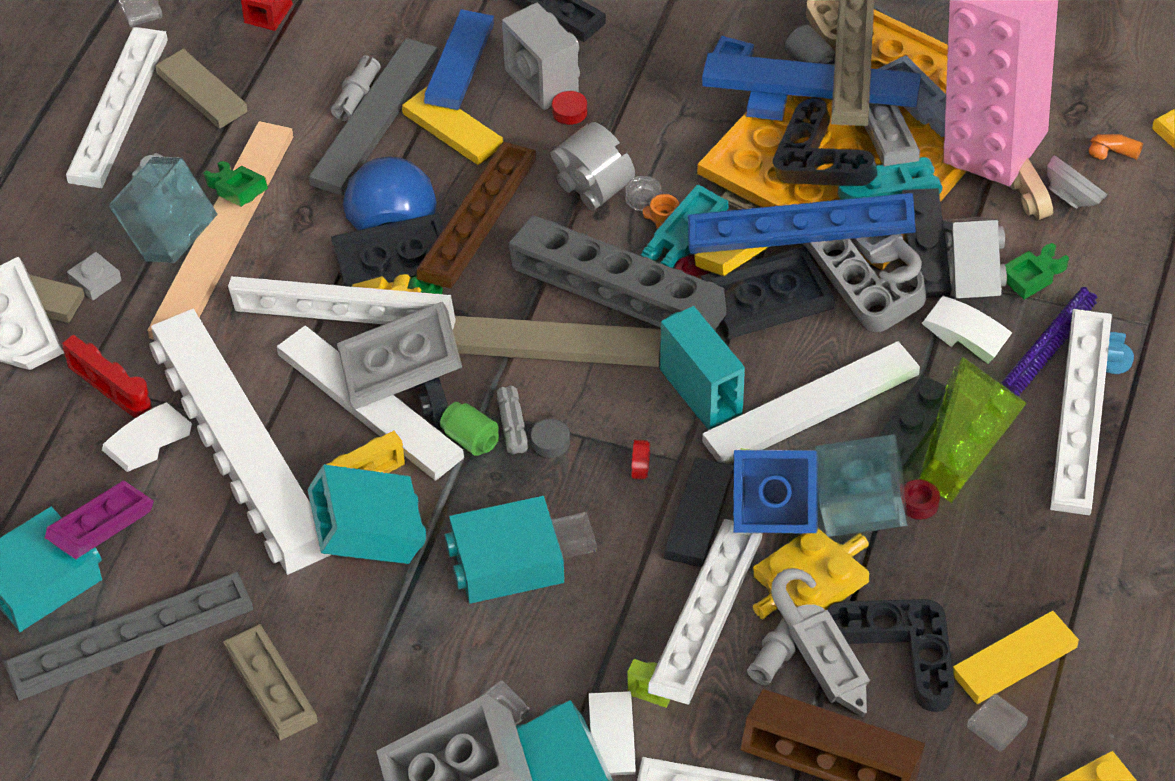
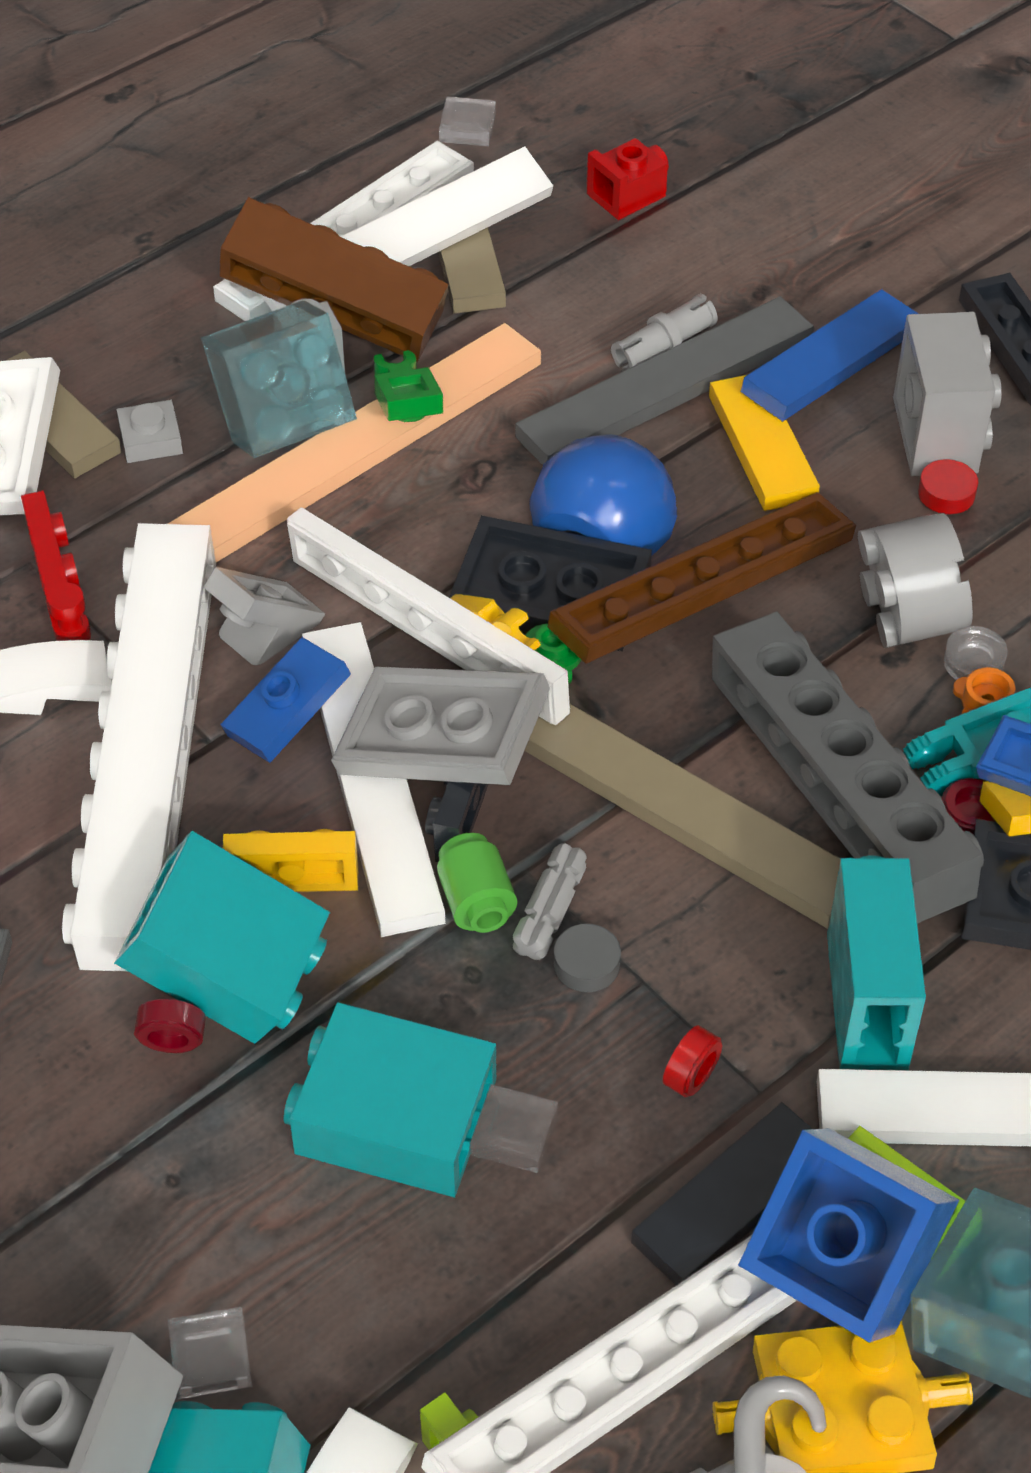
camera: 30 degrees right, 0 degrees up
(131, 134) = (361, 284): none -> reddish brown brick
(164, 95) = (454, 211): none -> white tile
(246, 348) = (260, 613): none -> light grey slope
(296, 384) = (285, 699): none -> blue plate
(364, 573) = (169, 1025): none -> dark red tile

